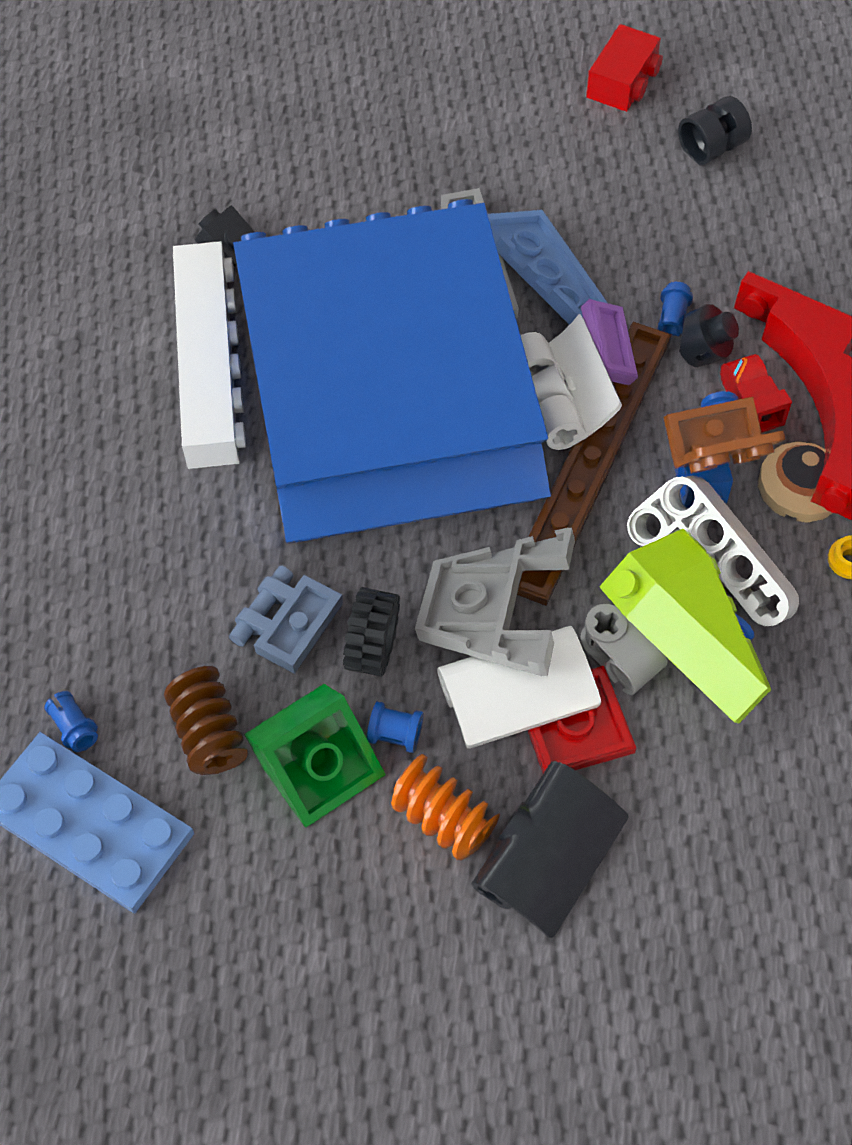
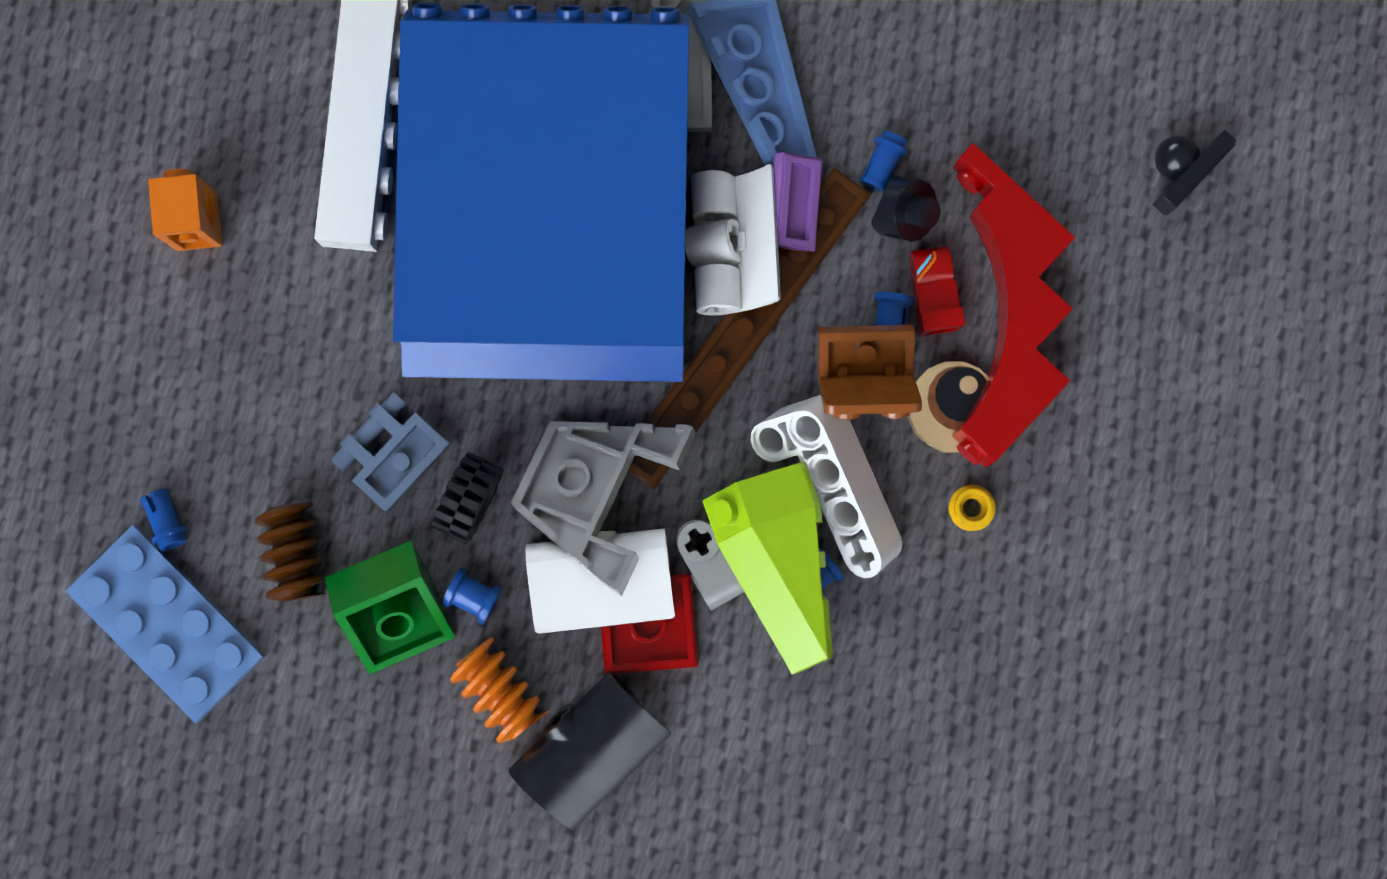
camera: 10 degrees right, 25 degrees up
(58, 447) = (184, 211): none -> orange brick

